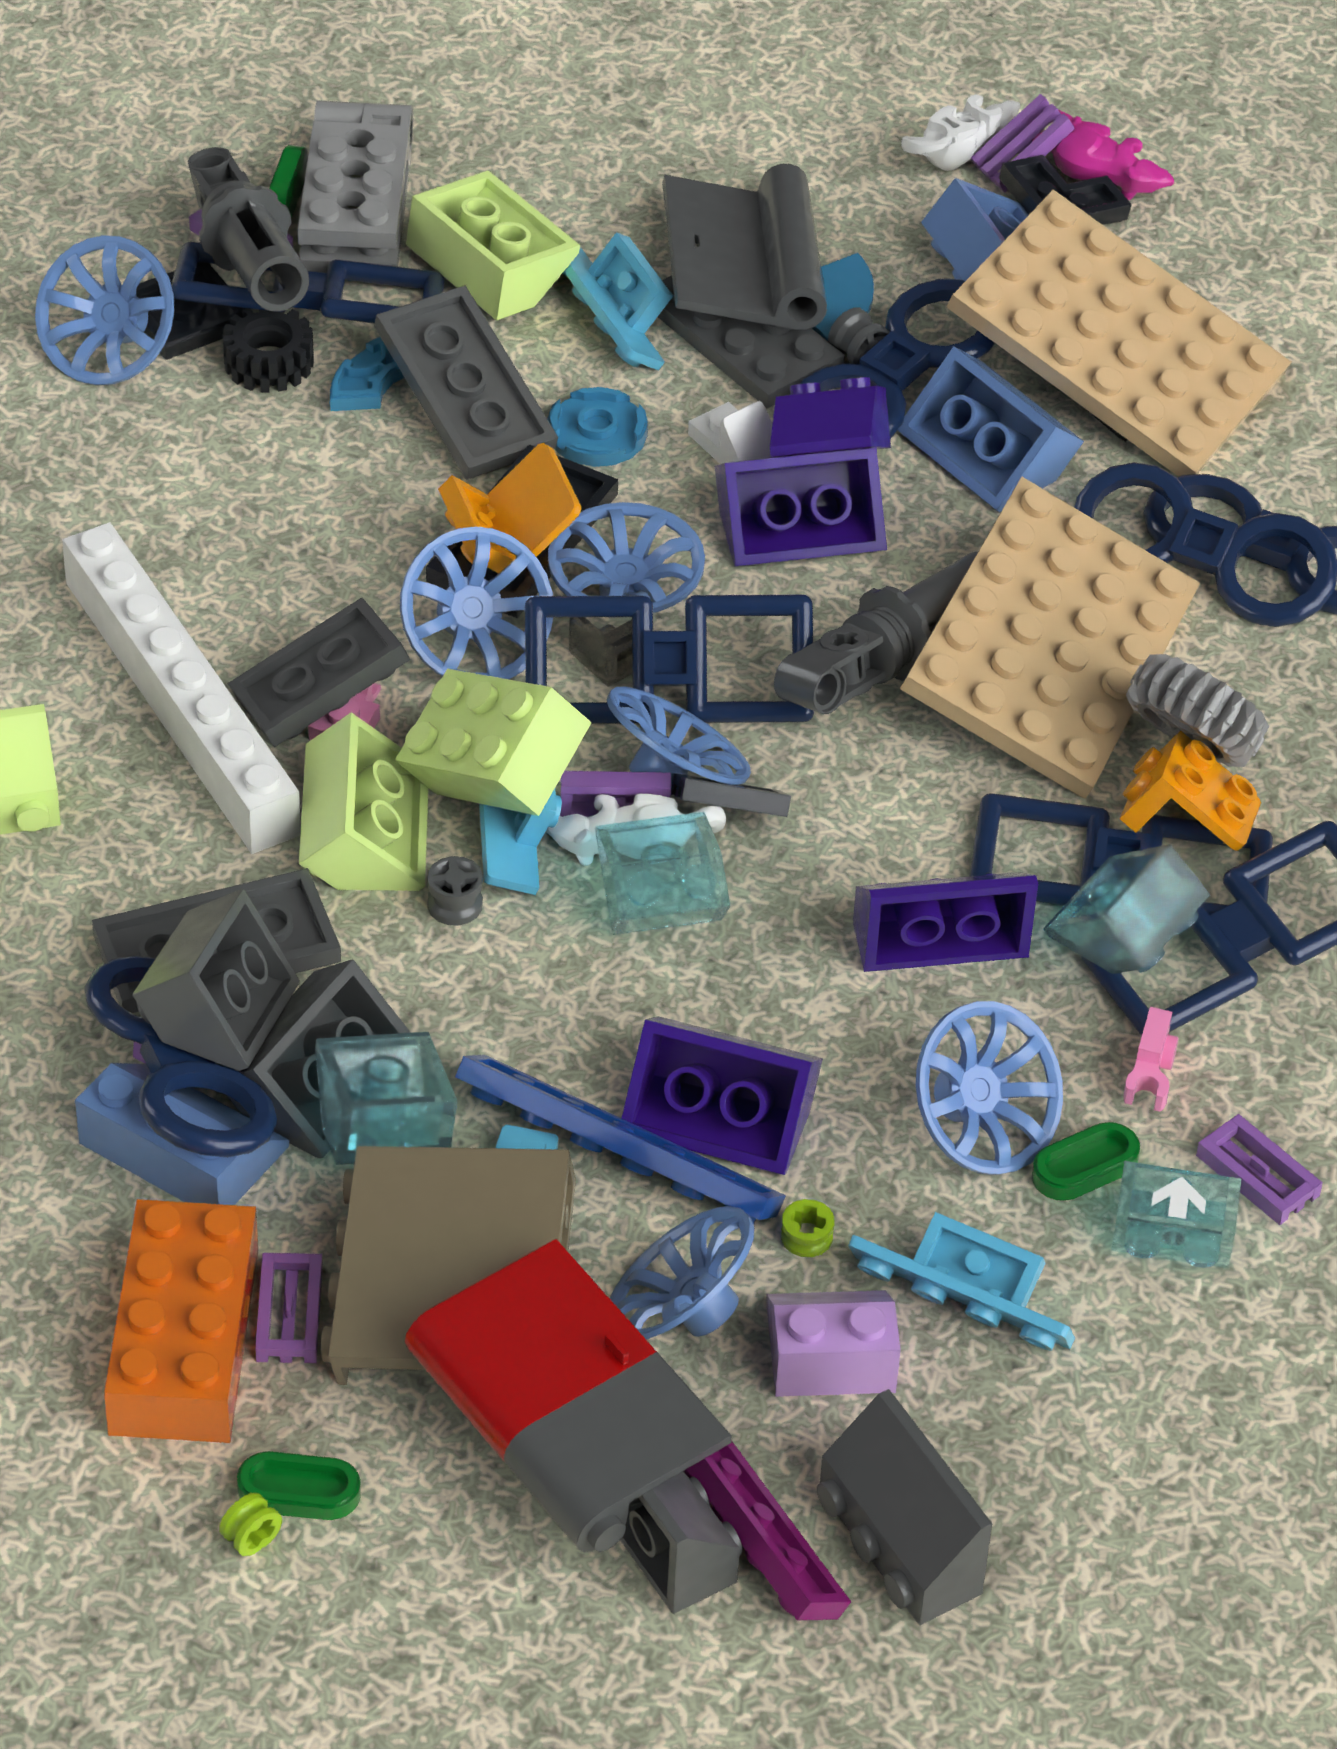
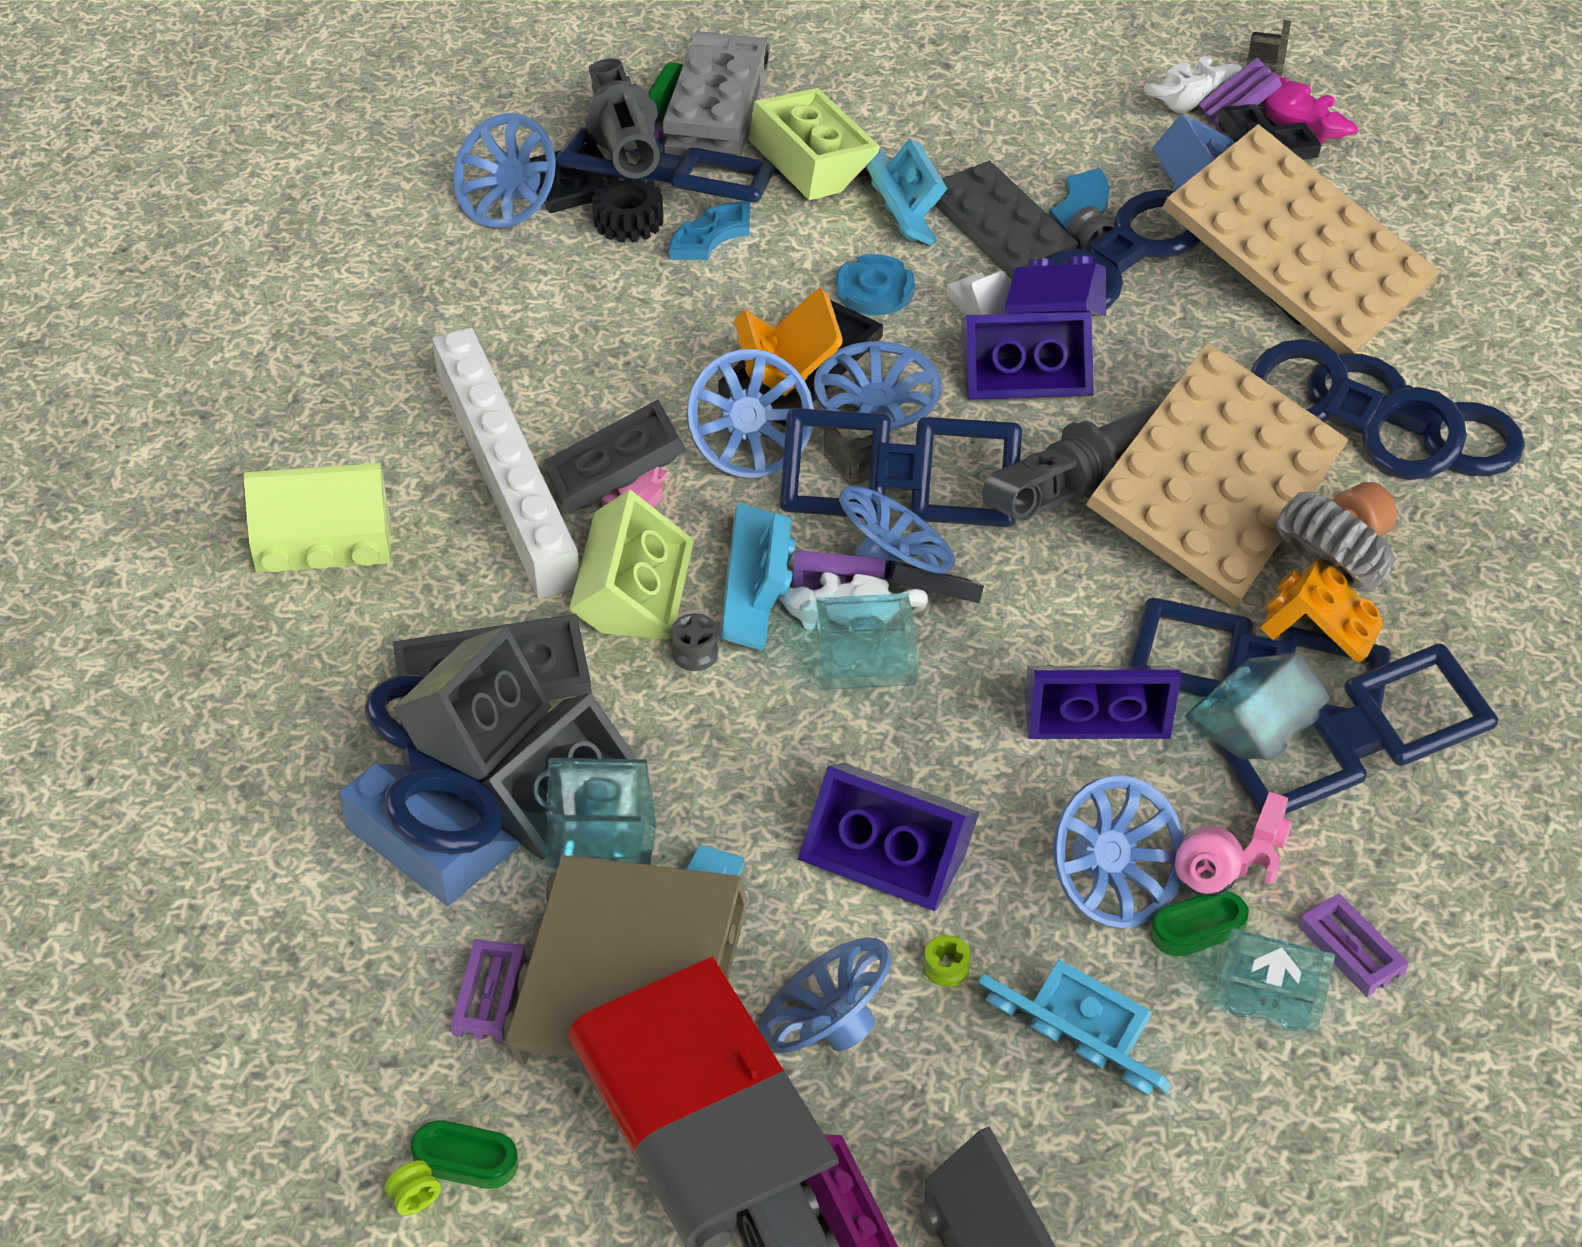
camera: 10 degrees right, 0 degrees up
(182, 1321) = (391, 995): orange brick -> none
(464, 381) = (773, 241): dark grey plate -> none
(493, 741) = (741, 521): yellowish green brick -> none
(599, 1129) = (811, 876): blue plate -> none
(752, 249) = (1014, 160): dark grey door -> none
(833, 1342) = (954, 1068): lavender slope -> none
(987, 430) = (1185, 306): medium blue slope -> none
(1053, 78) = (1270, 48): none -> clear smoke panel
(1088, 1071) = (1212, 845): none -> bright pink head
(1233, 662) = (1371, 505): none -> nougat head

